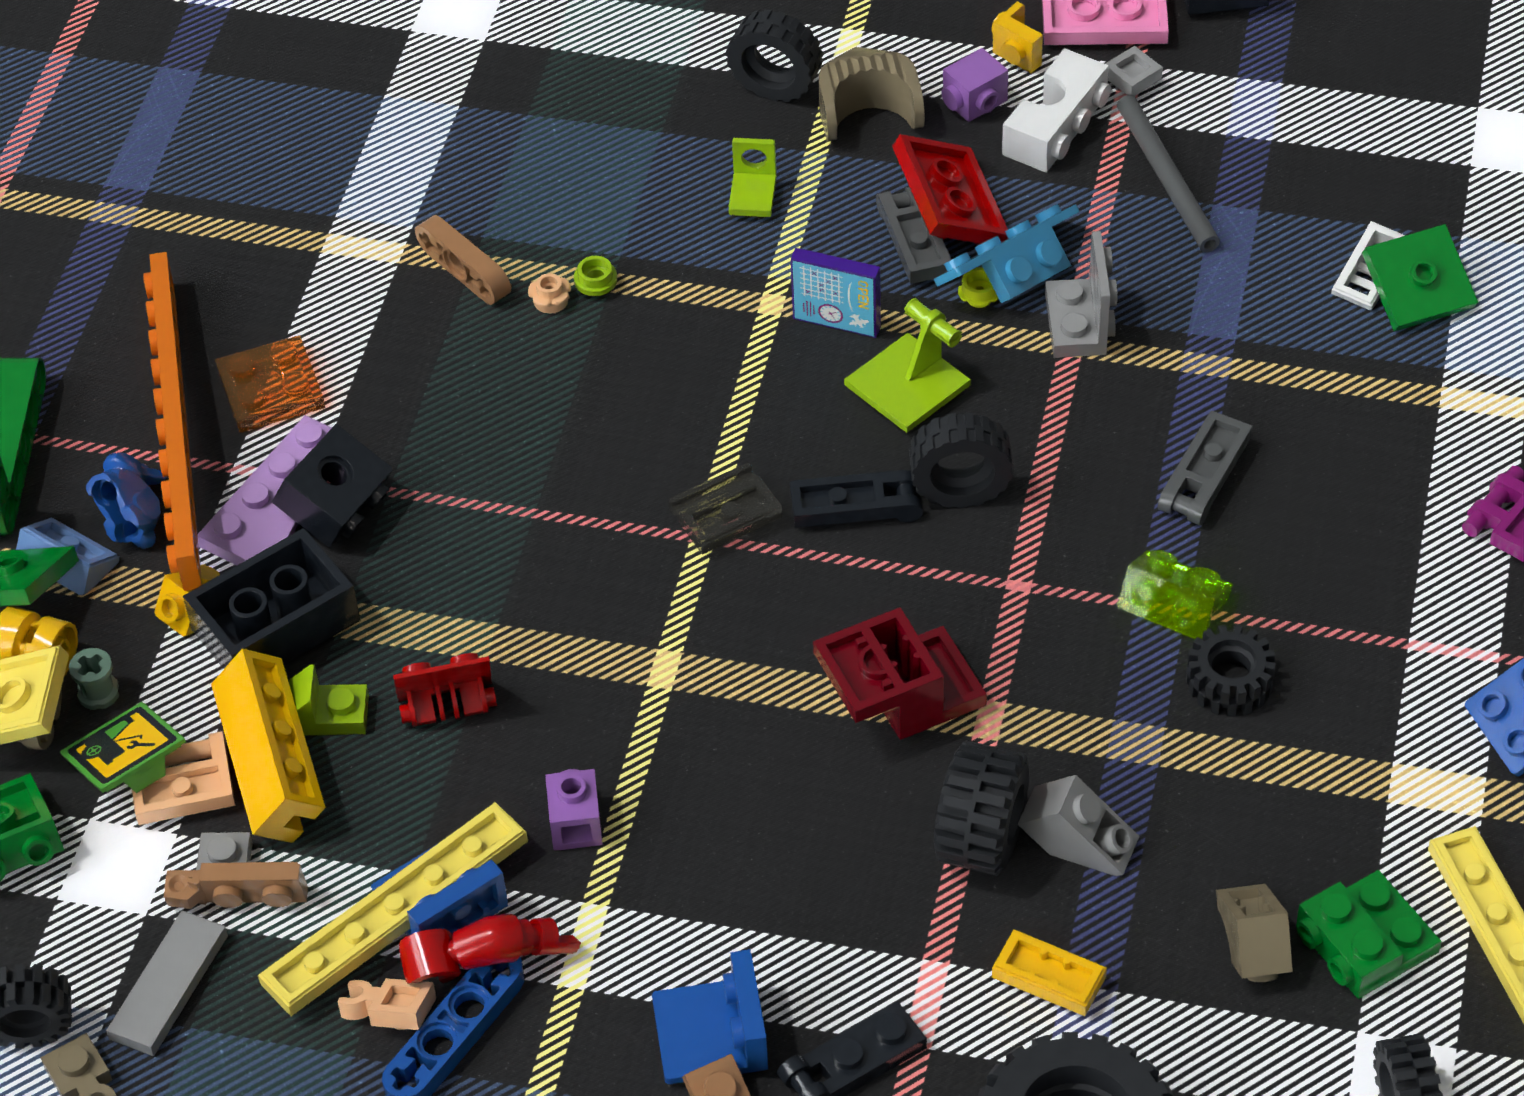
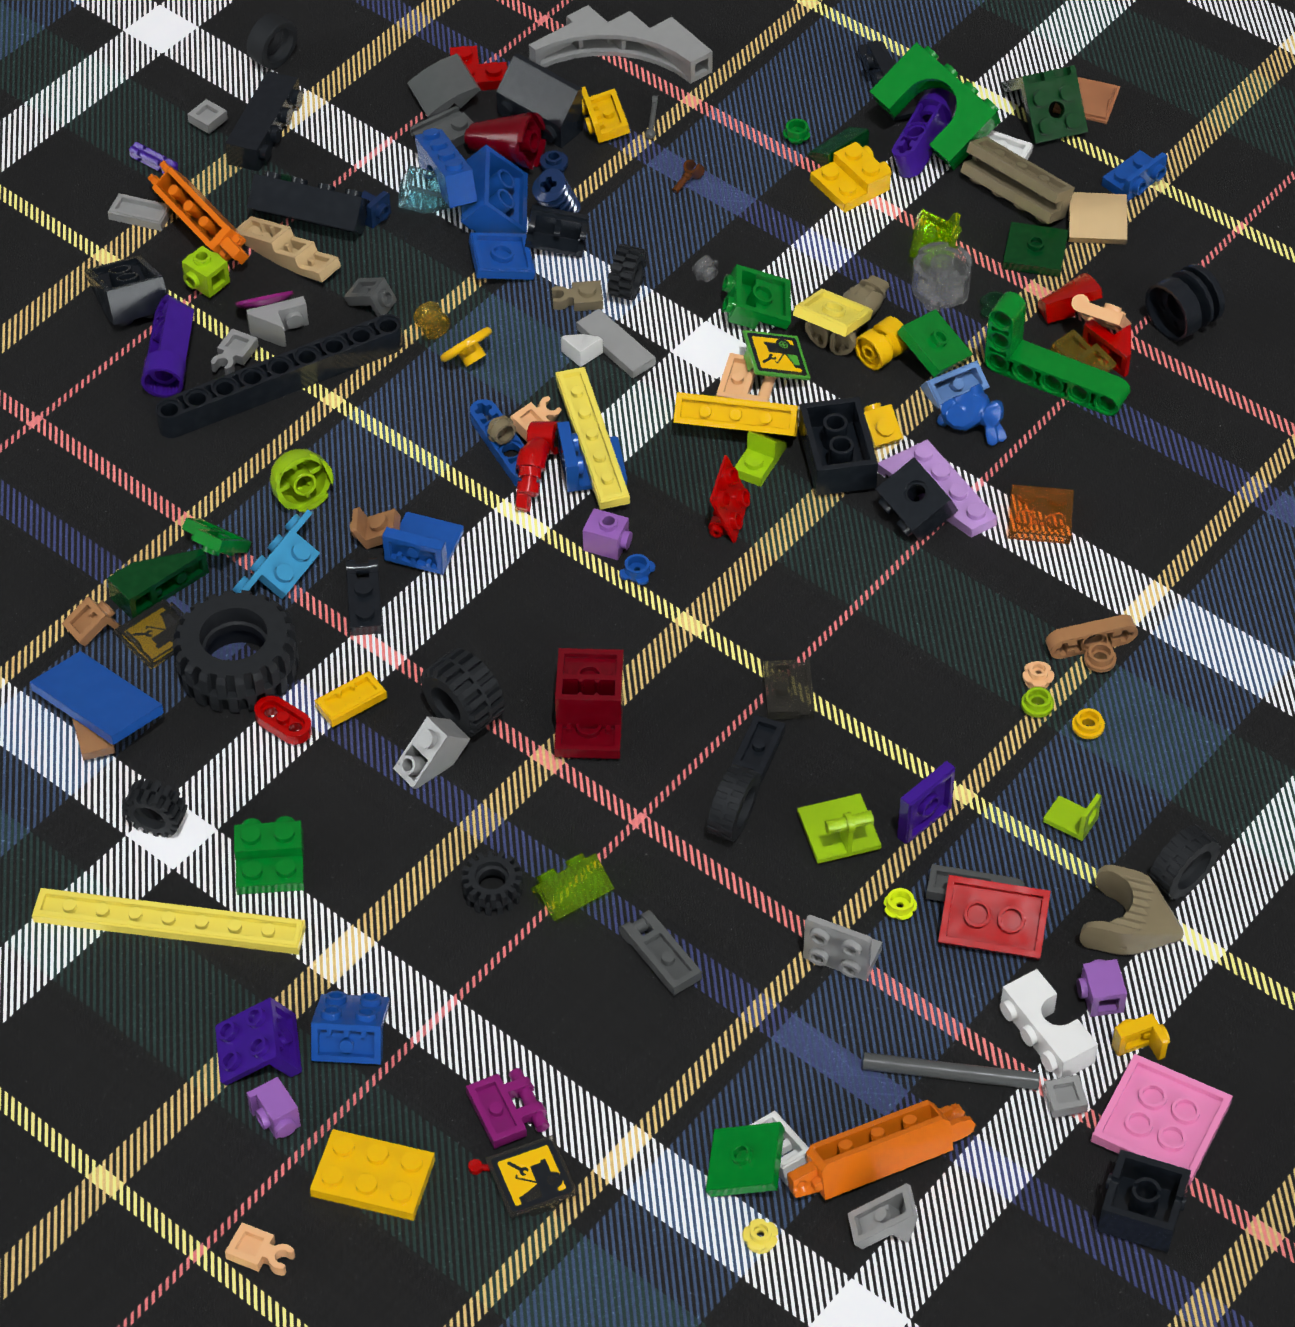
camera: 115 degrees right, 0 degrees up
(92, 672) = (843, 363): sand green bush -> none
(172, 428) = (1022, 443): orange plate -> none
(200, 1016) = (581, 347): none -> white slope
(224, 848) = (681, 383): light grey plate -> none
(236, 883) = (654, 383): medium nougat hinge -> none
(450, 1014) = (501, 430): none -> dark tan plate
(492, 242) = (1100, 657): none -> medium nougat plate
(600, 222) = (1091, 718): none -> yellow plate
(609, 744) = (637, 569): none -> blue plate
(1020, 261) = (907, 928): dark azure bracket -> none
(1142, 1035) = (287, 724): none -> red plate
(1256, 932) = (305, 796): dark tan arch -> none
(1324, 171) = (879, 1149): none -> orange hinge
(1396, 133) = (884, 1216): none -> light grey slope
(1491, 242) = (760, 1244): none -> light yellow plate

